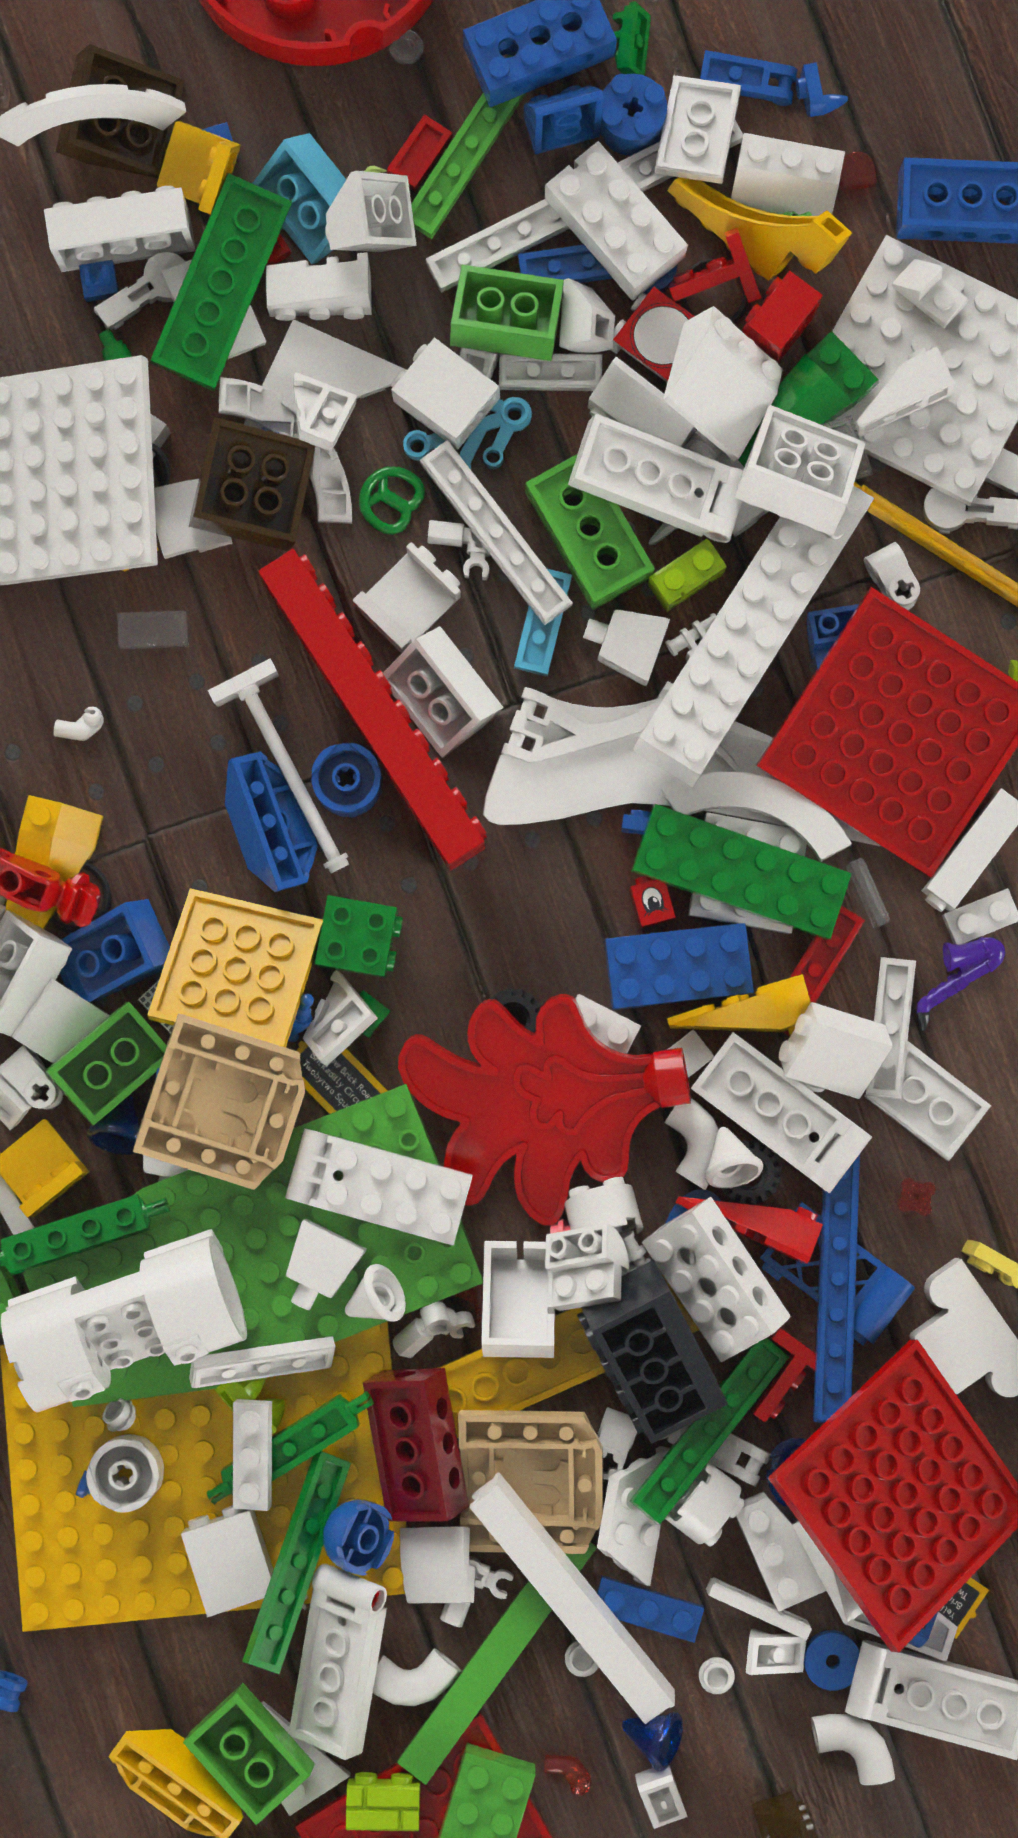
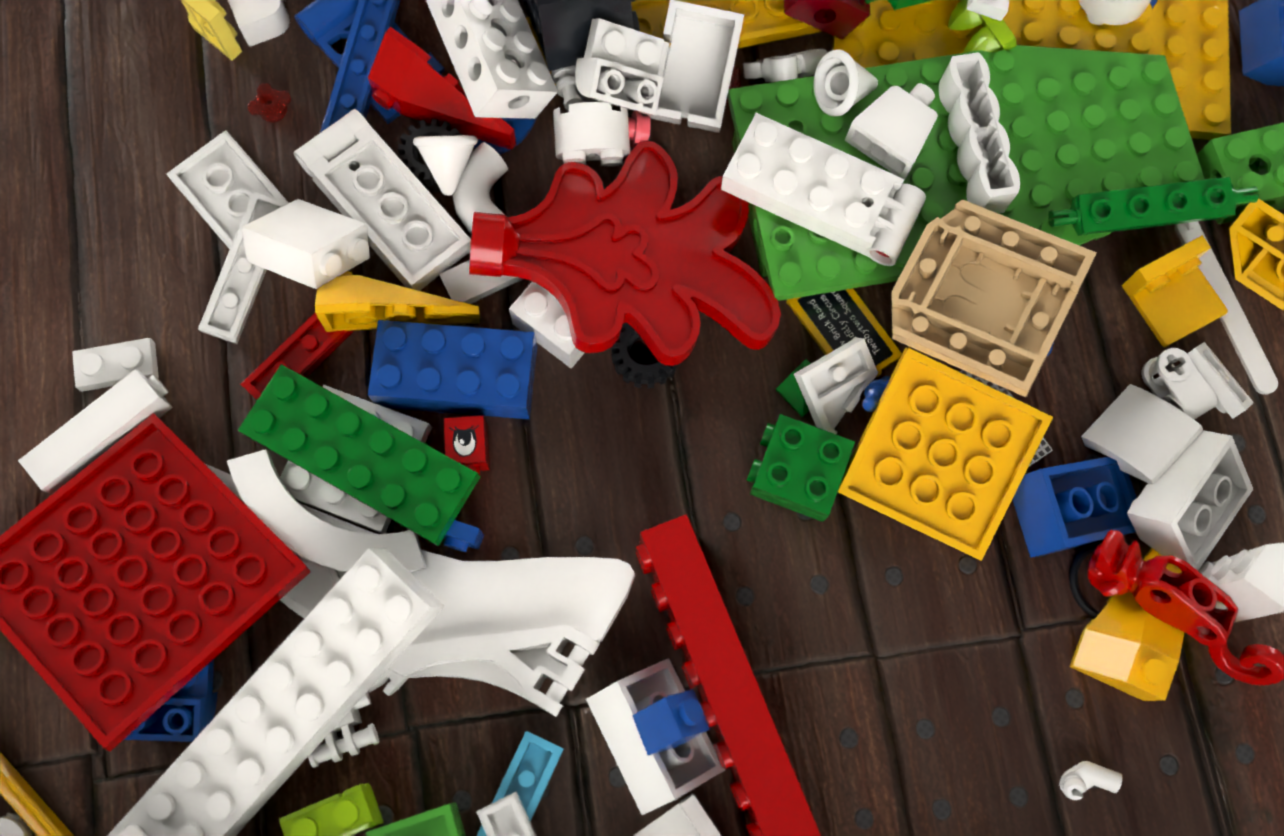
camera: 170 degrees left, 10 degrees down
(73, 1336) = (1183, 91): white cylinder -> none
(108, 1063) = (1099, 379): bright green brick -> none
(117, 1129) = (1089, 322): hat -> none
(119, 1415) = (1119, 38): white plate -> none
(246, 688) = (888, 781): white tile -> none
(250, 1275) = (978, 134): none -> white brick
(262, 1362) = (987, 47): white tile -> none
(268, 822) = (880, 615): blue wedge -> none
(347, 759) = (808, 648): blue brick -> none
(430, 695) = (670, 722): none -> blue brick
(629, 642) = (420, 750): white torso -> none
(868, 893) = (227, 409): clear tile -> none
(890, 571) = (87, 776): white piece -> none
(973, 960) = (150, 316): dark purple piece -> none

